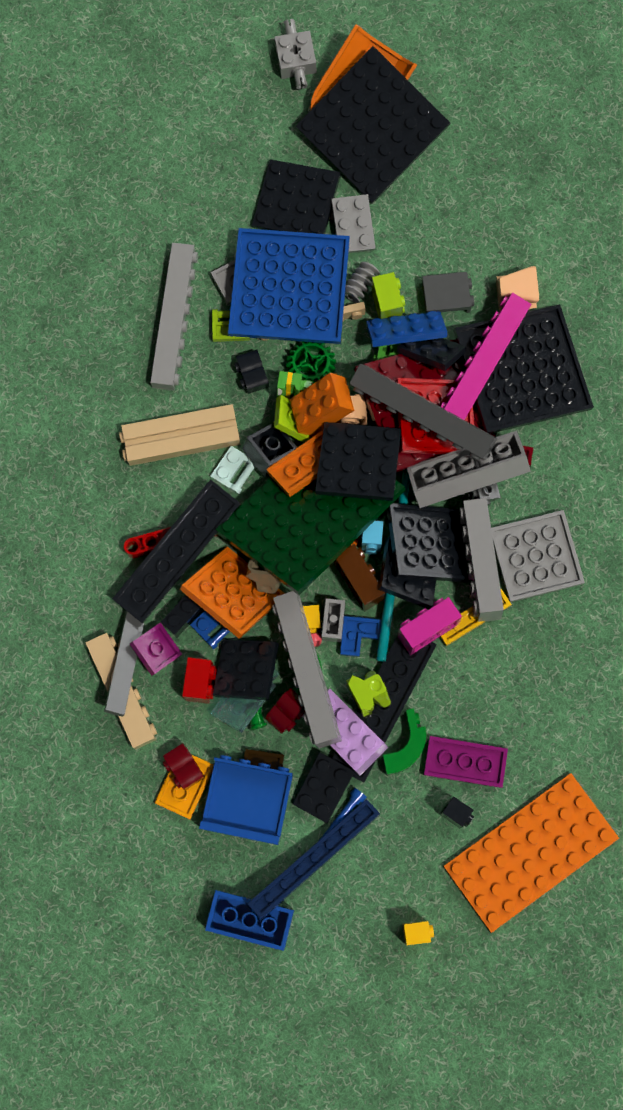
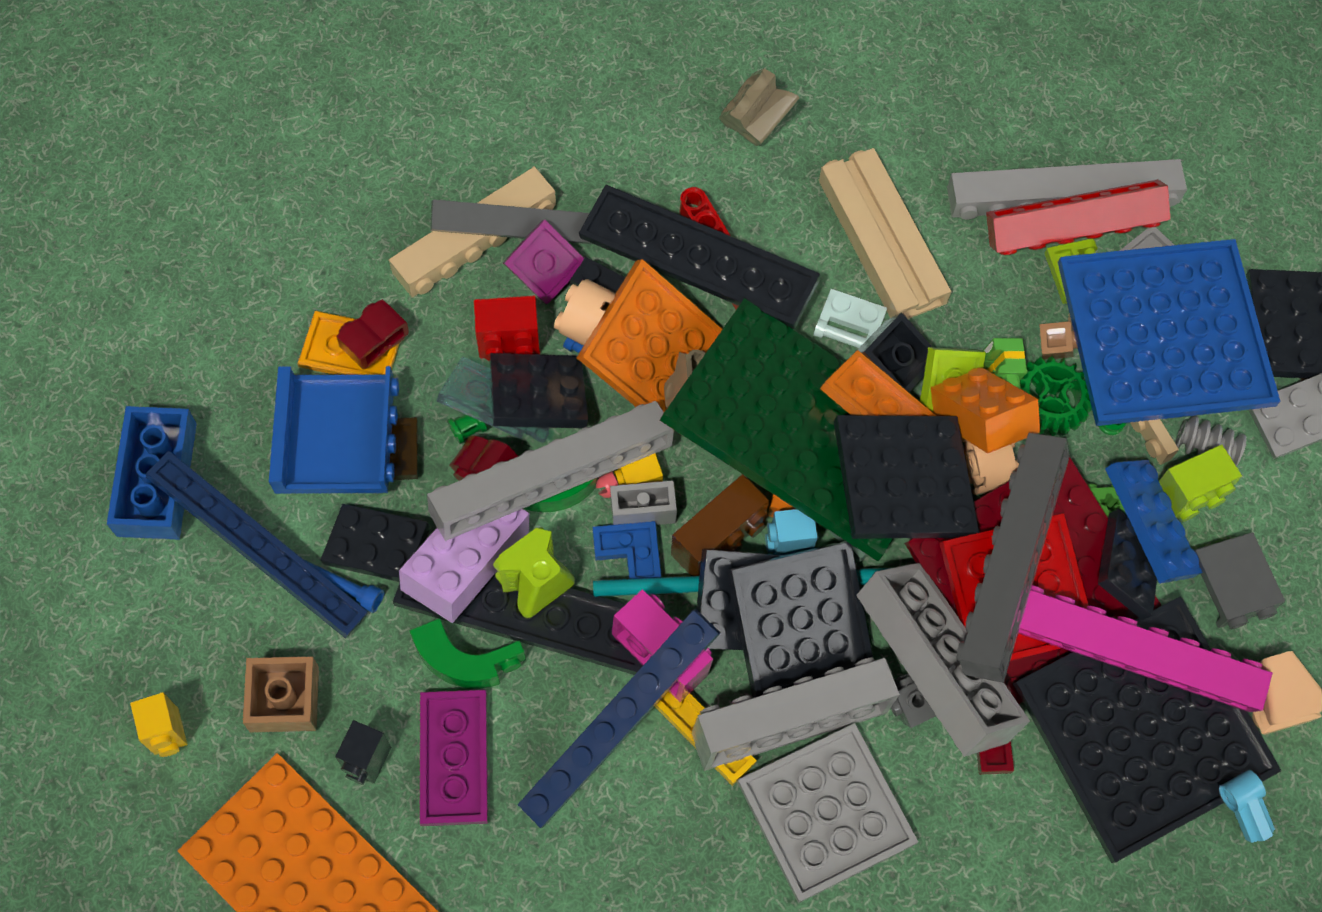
camera: 70 degrees right, 10 degrees down
(73, 491) = (758, 107): none -> dark tan piece
(197, 314) = (1078, 216): none -> brick
(204, 627) = (583, 311): none -> light nougat brick
(252, 371) = (1013, 313): black brick -> none
(278, 350) = (1057, 340): none -> medium nougat brick
(411, 857) = (281, 694): none -> medium nougat brick
(469, 658) = (619, 718): none -> dark blue plate
(574, 328) = (1244, 798): none -> medium azure piece

